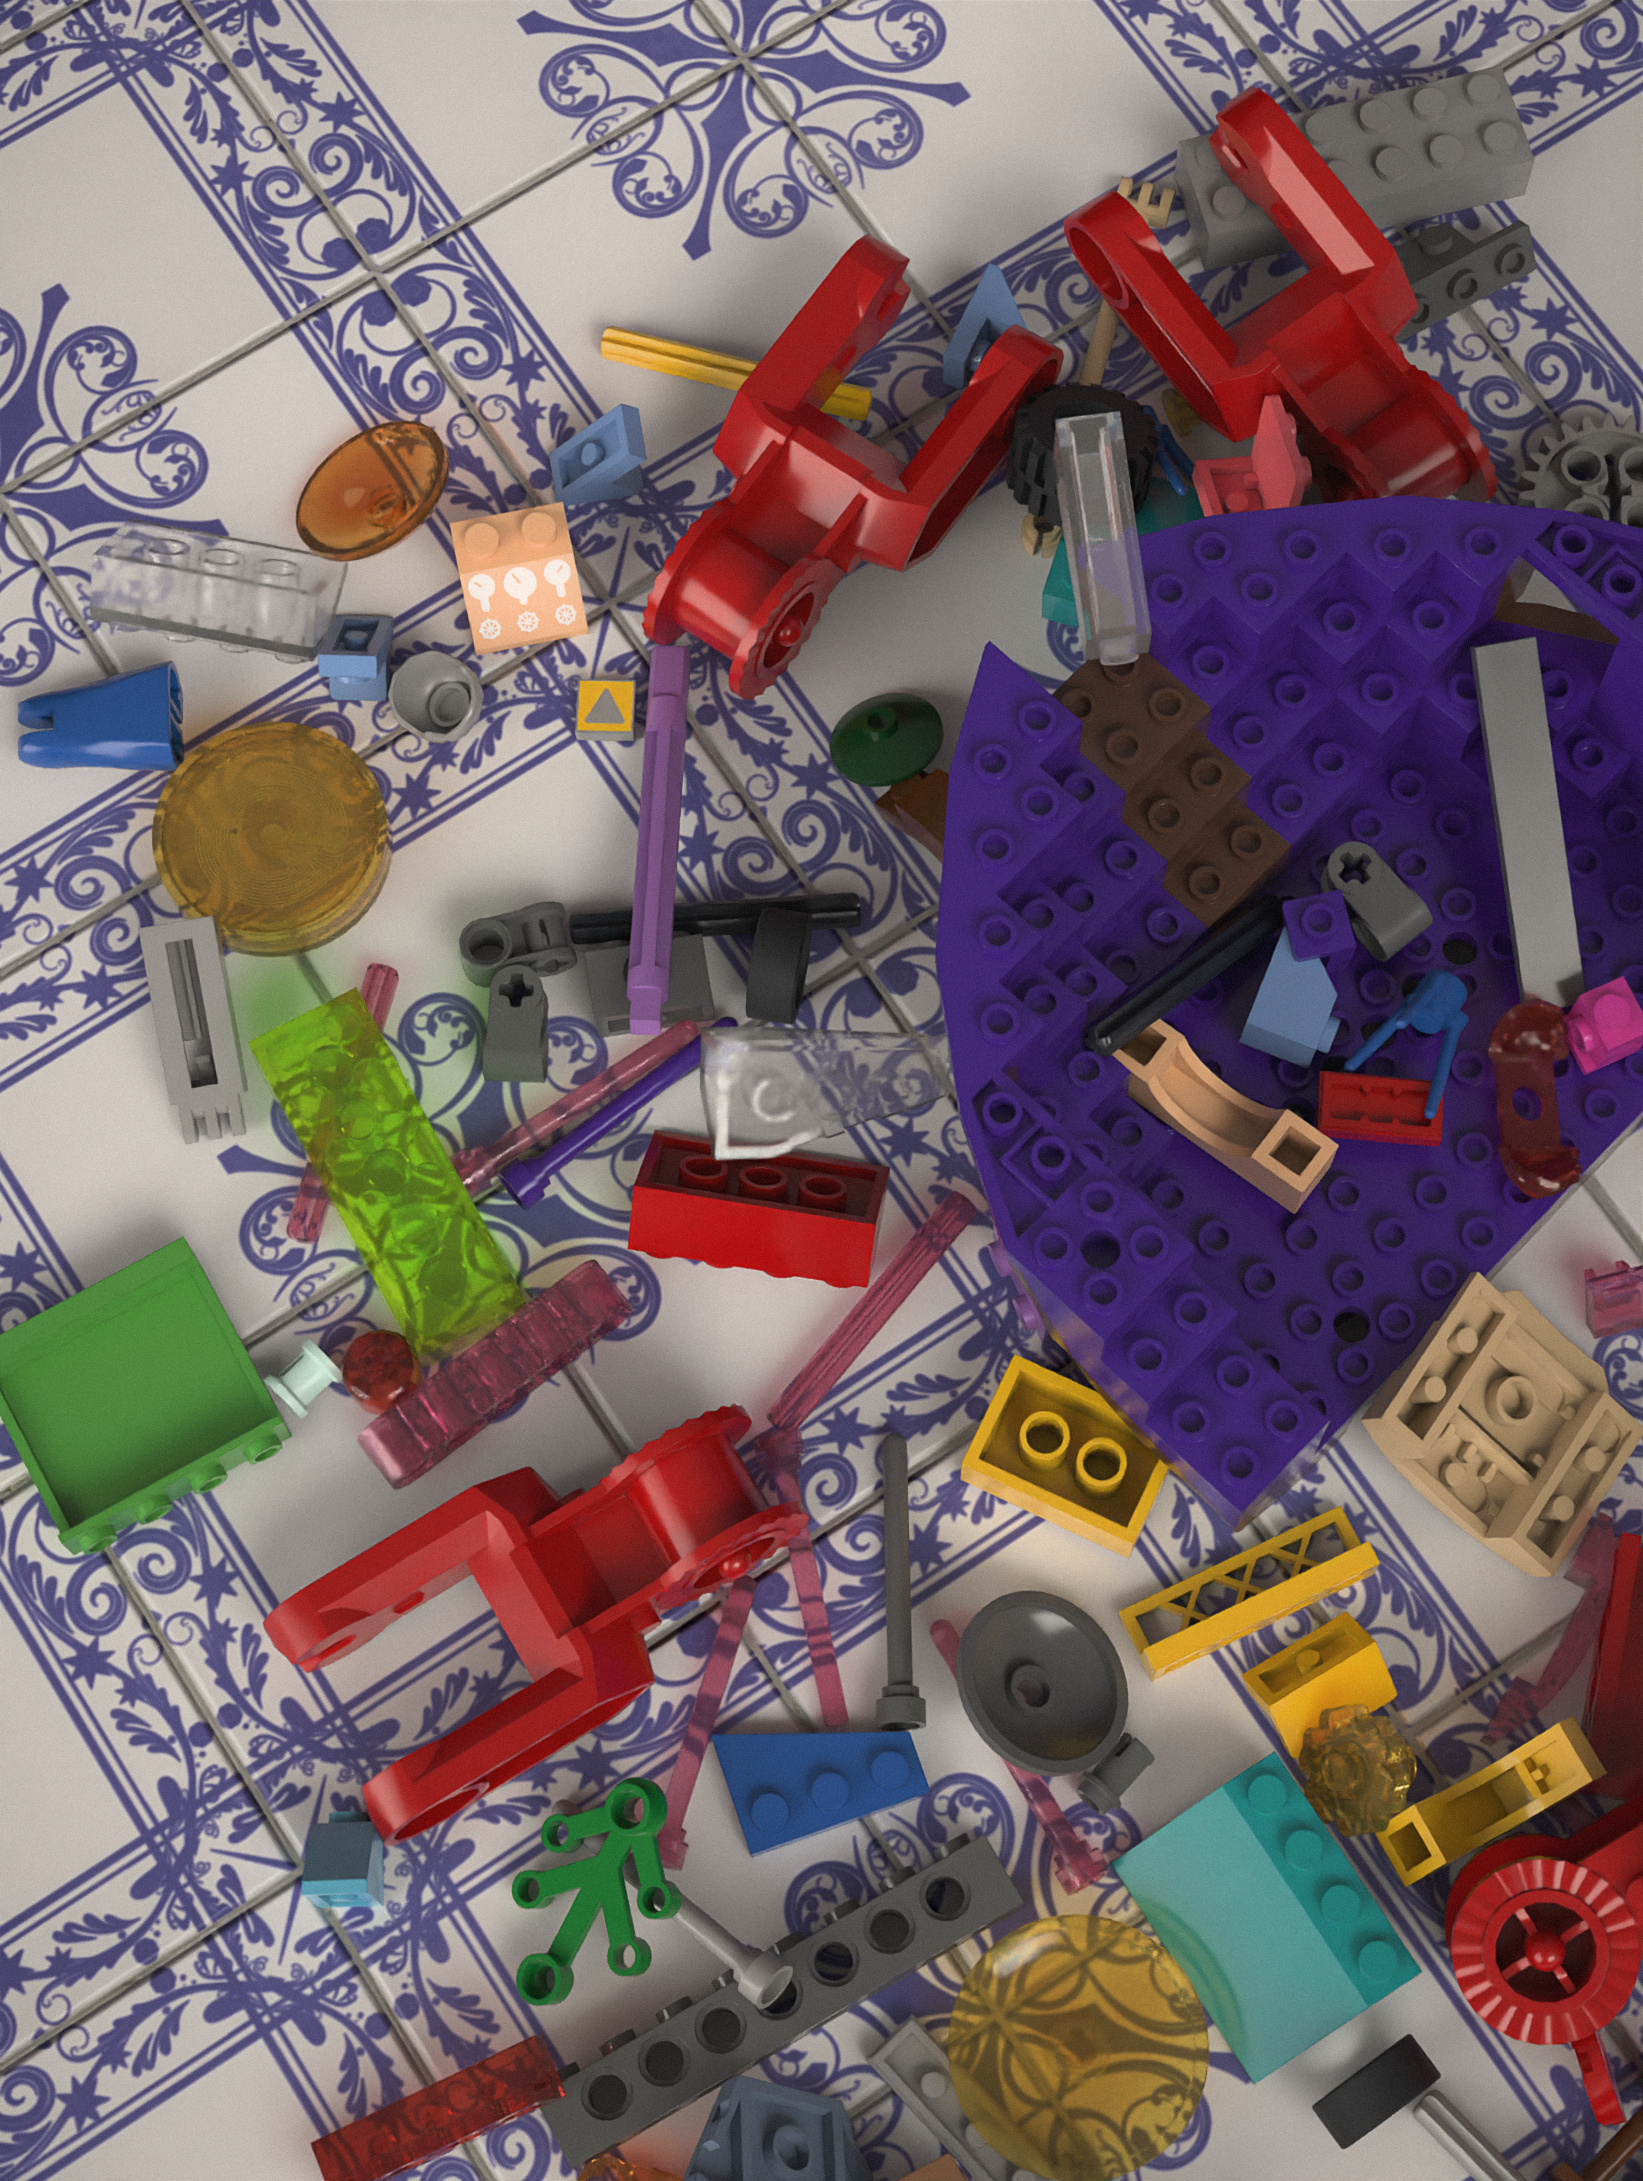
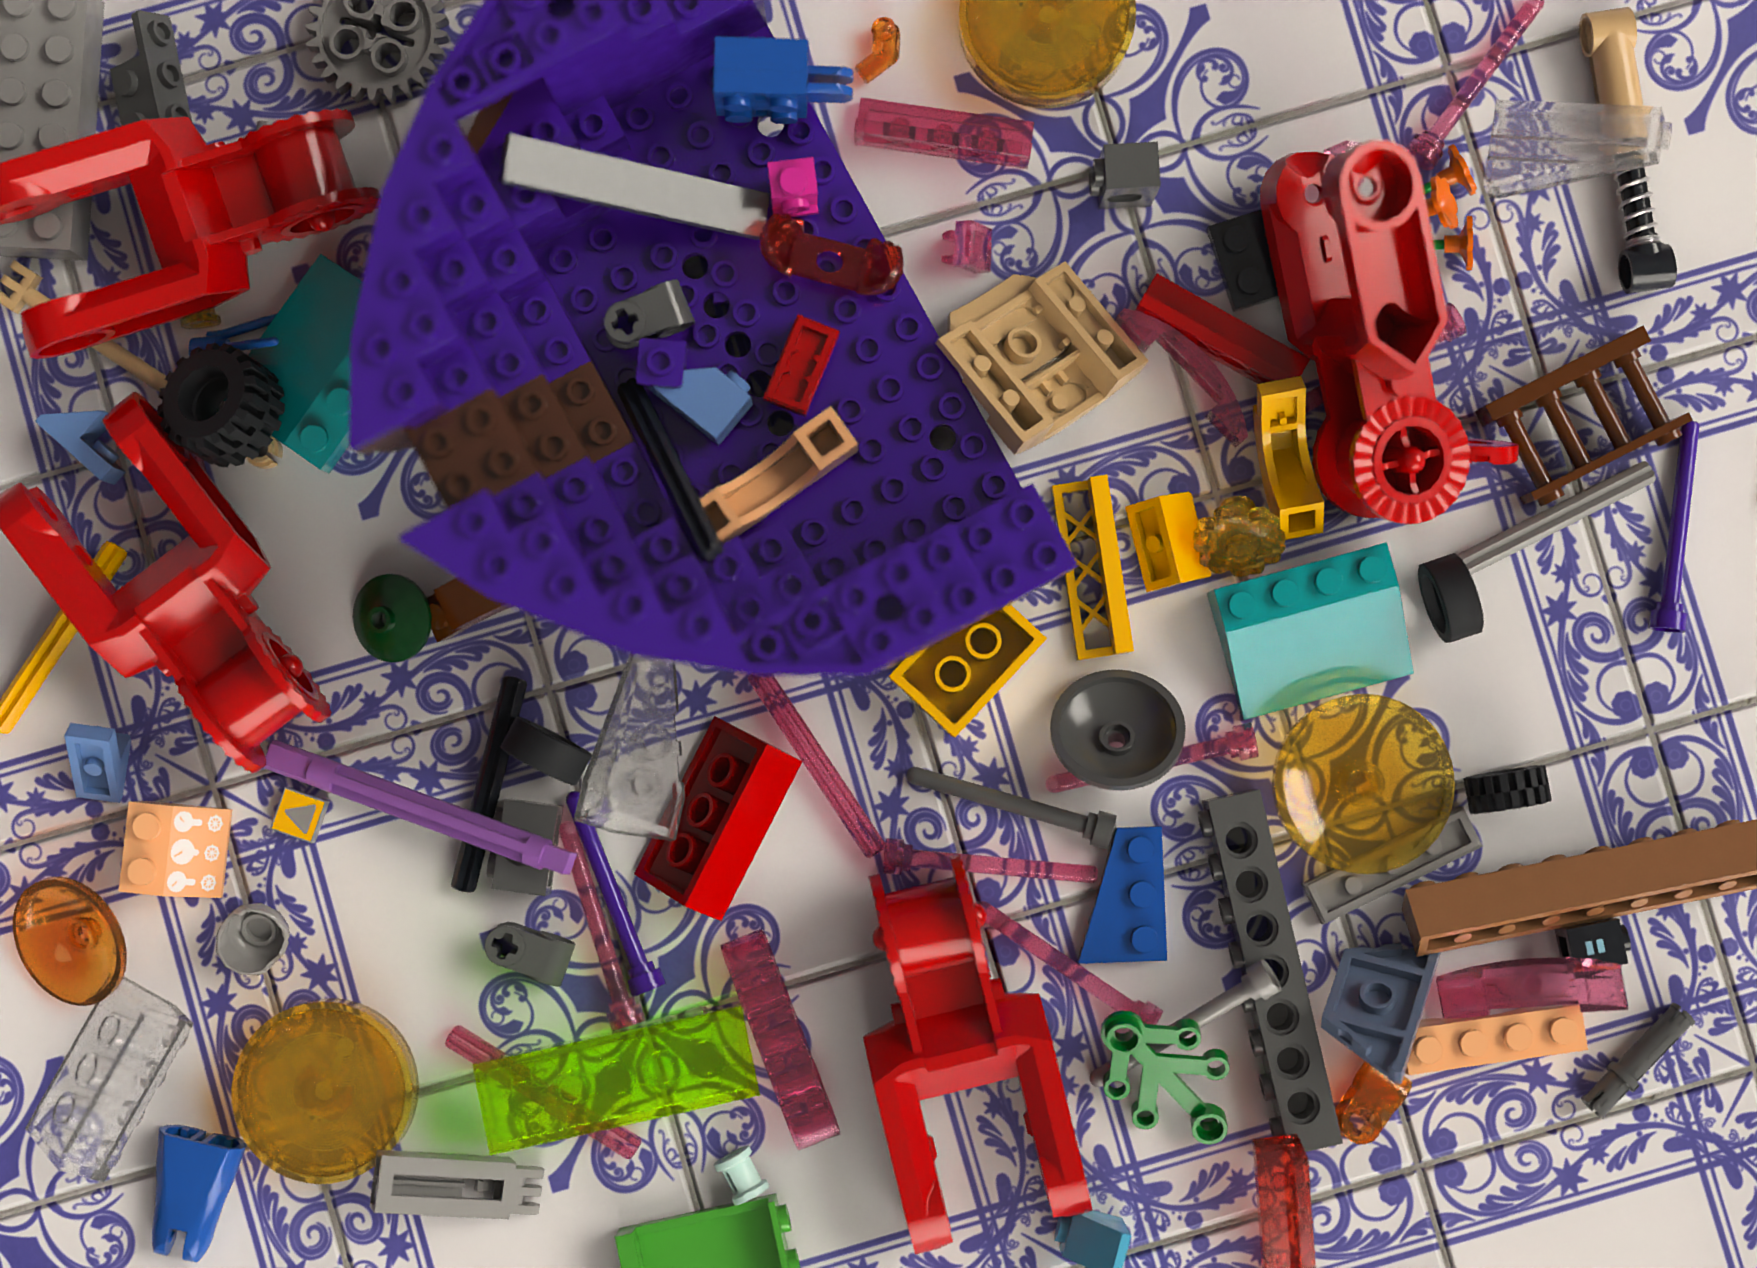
camera: 75 degrees left, 15 degrees up
(357, 657) = (196, 987): medium blue slope -> none
(377, 1353) = (766, 1108): clear red head -> none
(521, 942) = (466, 930): dark grey piece -> none
(1101, 537) = (353, 429): clear slope -> none
(1114, 1774) = (1189, 698): dark grey pin -> none
(1267, 479) = (294, 288): coral bracket -> none
(1429, 1008) = (741, 304): blue plant -> none

